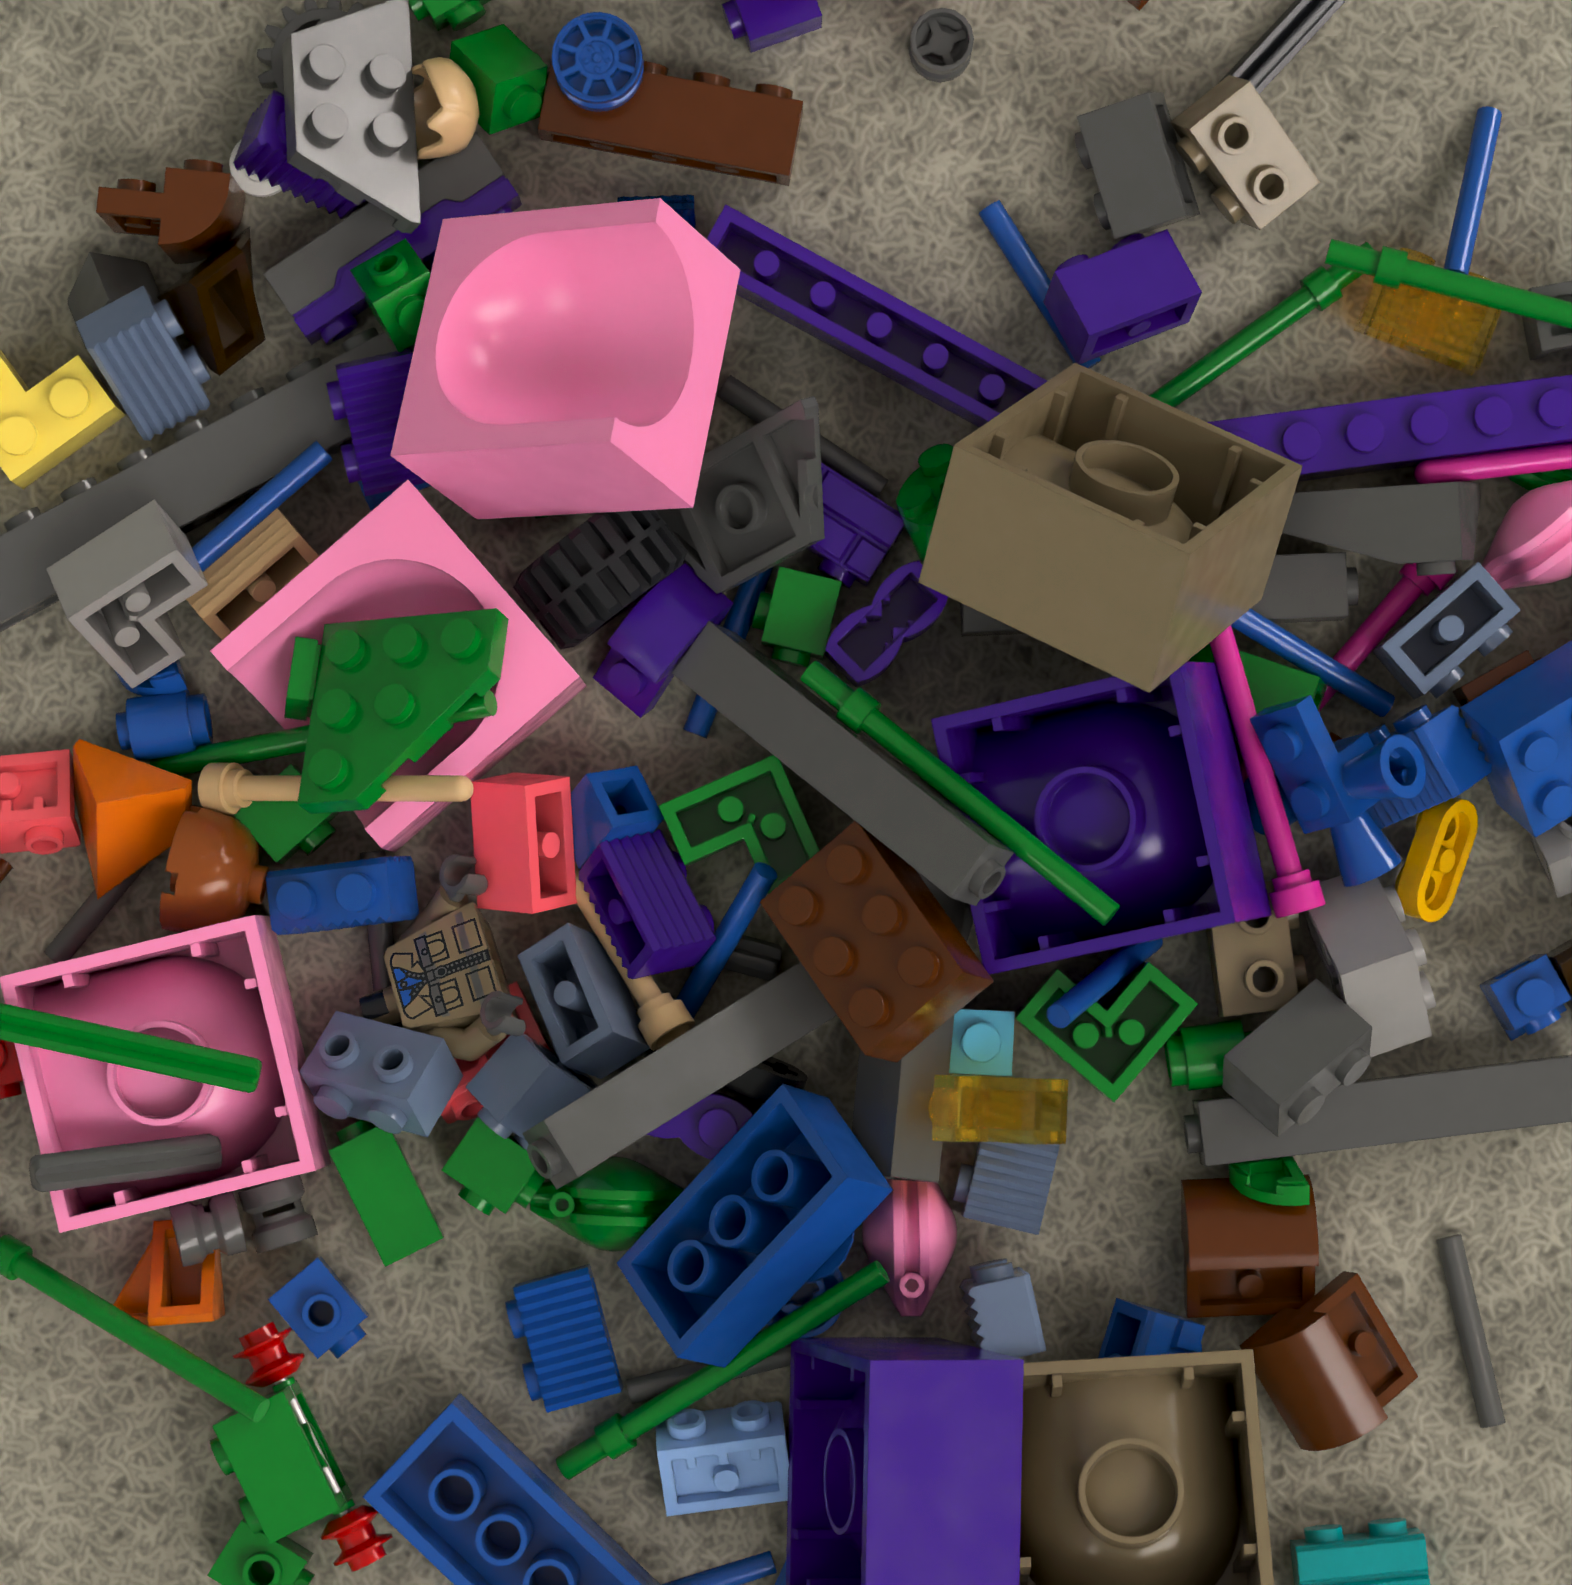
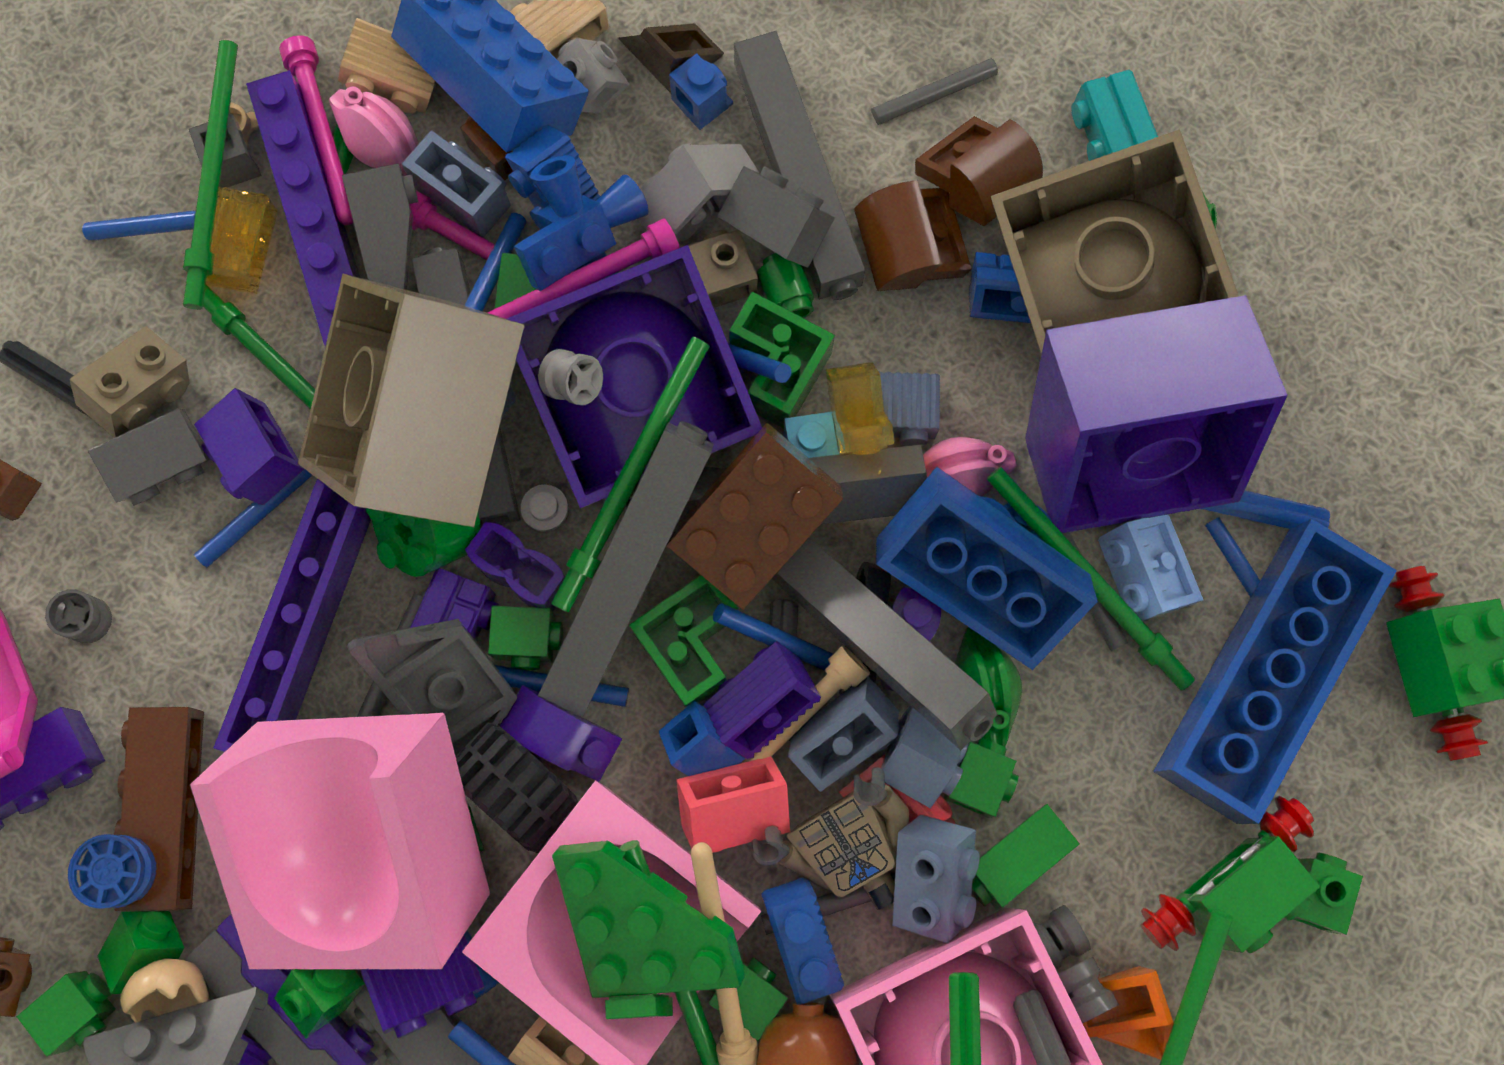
camera: 105 degrees left, 10 degrees down
(321, 1310) = (1120, 890): blue brick -> none
(565, 1339) = (1094, 699): blue brick -> none
(968, 671) = (544, 508): none -> white plate
(1002, 1309) = (1000, 386): sand blue brick -> none
(1094, 738) = (570, 376): none -> light grey wheel
(1276, 1178) = (865, 220): green tile -> none
(1437, 859) = (610, 165): yellow plate -> none

